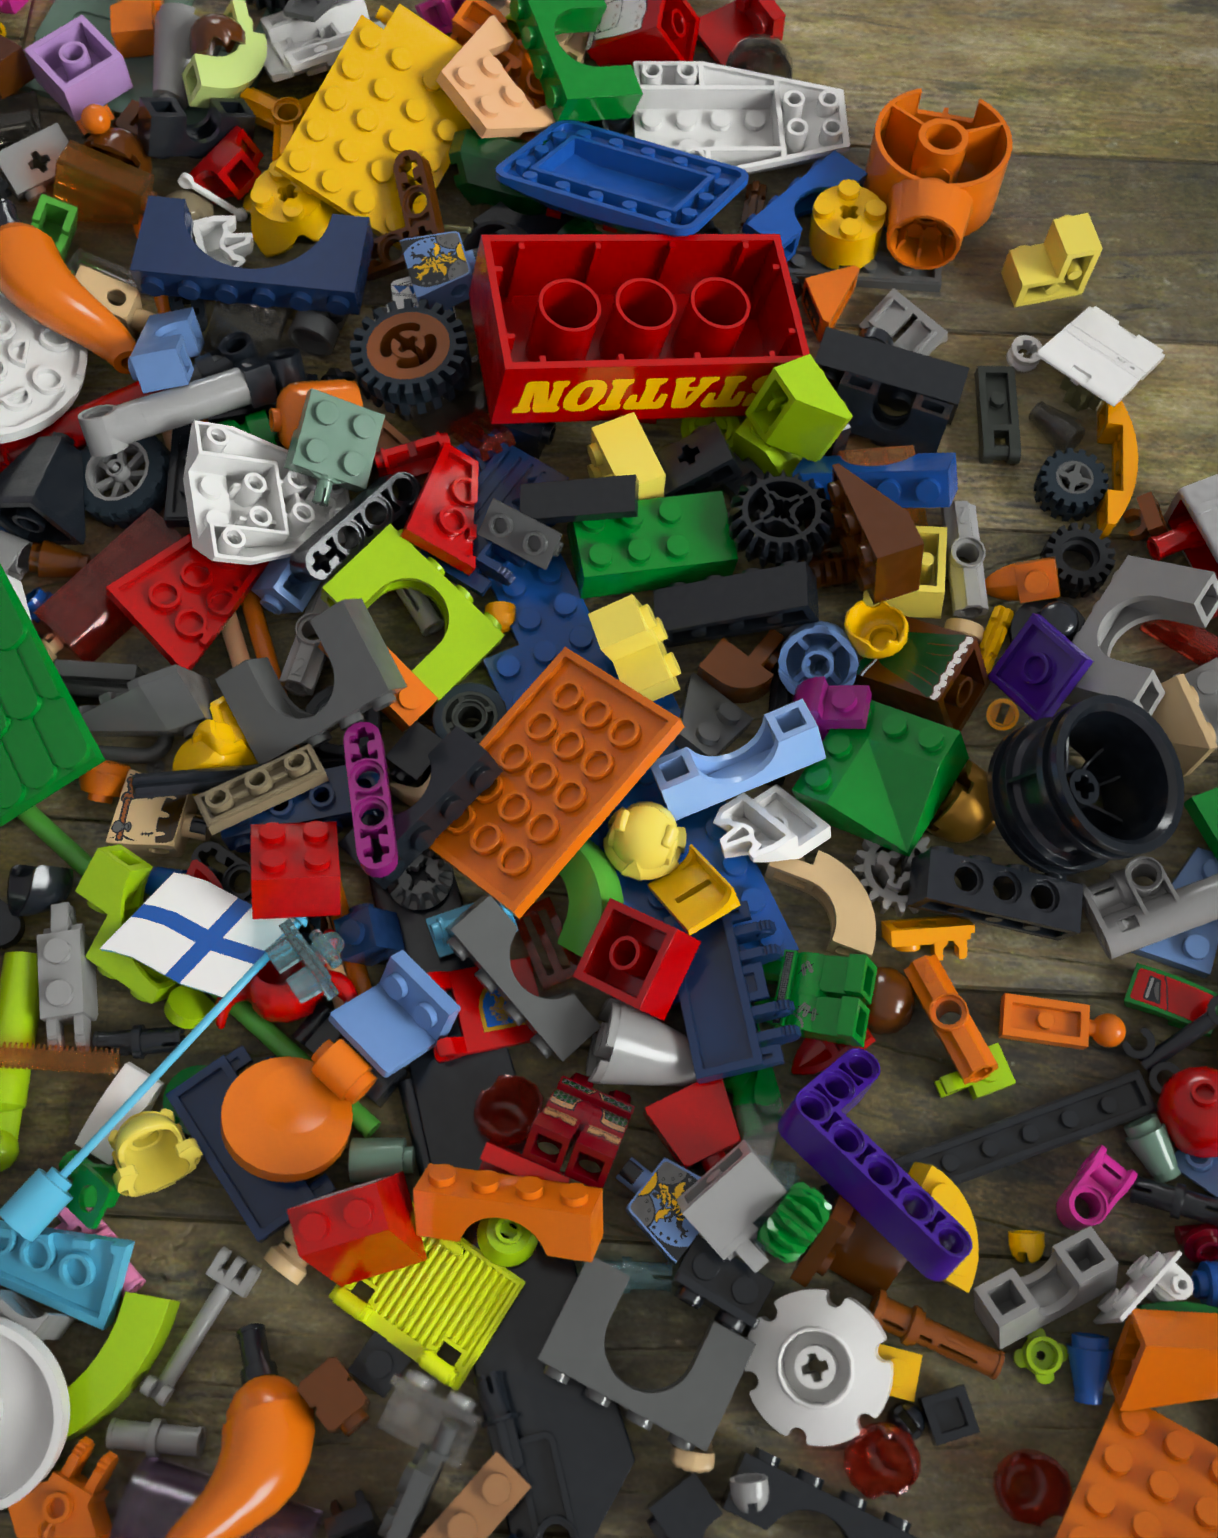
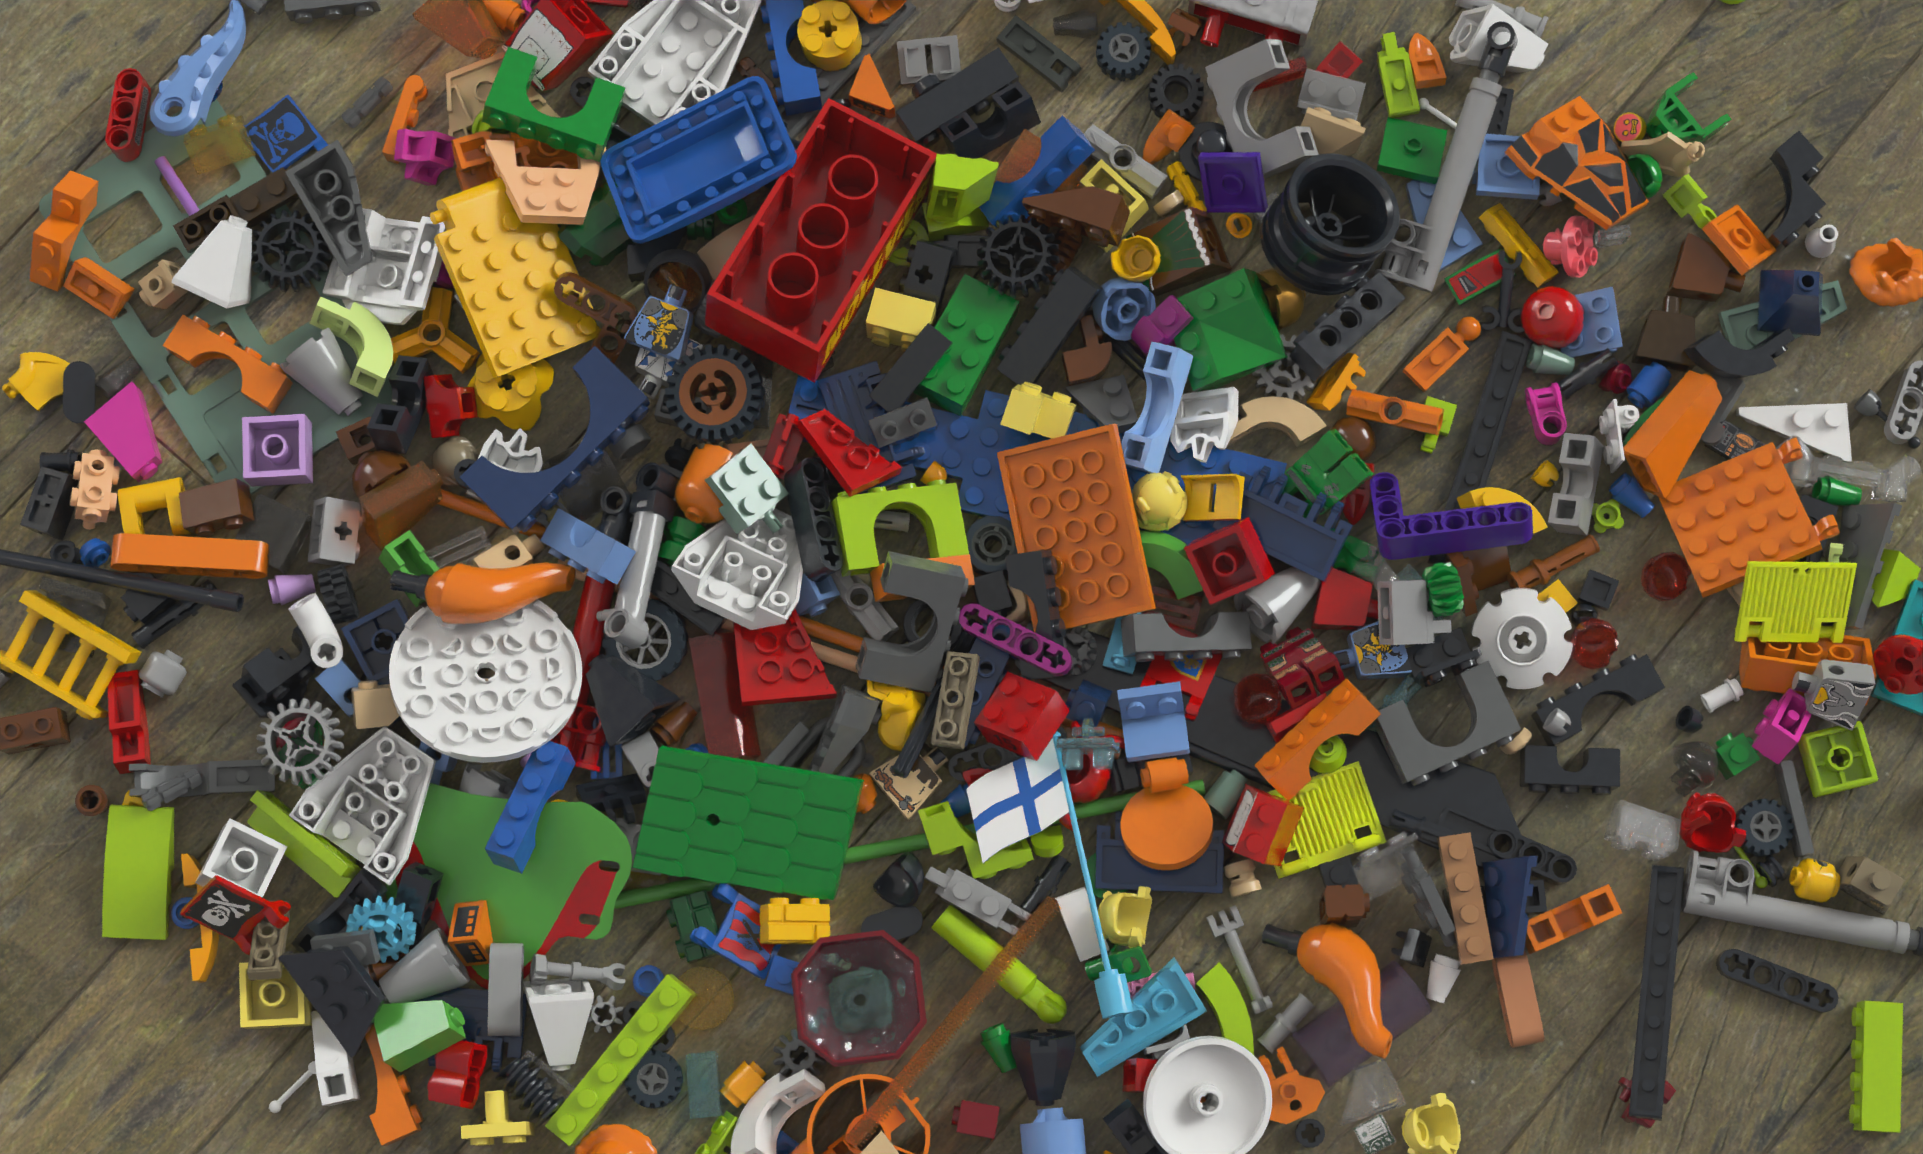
camera: 50 degrees left, 10 degrees up
(95, 119) = (338, 469): orange plate -> none
(187, 181) = (441, 441): white hinge -> none
(214, 31) = (346, 340): reddish brown hair -> none
(476, 439) = (817, 391): clear red tile -> none

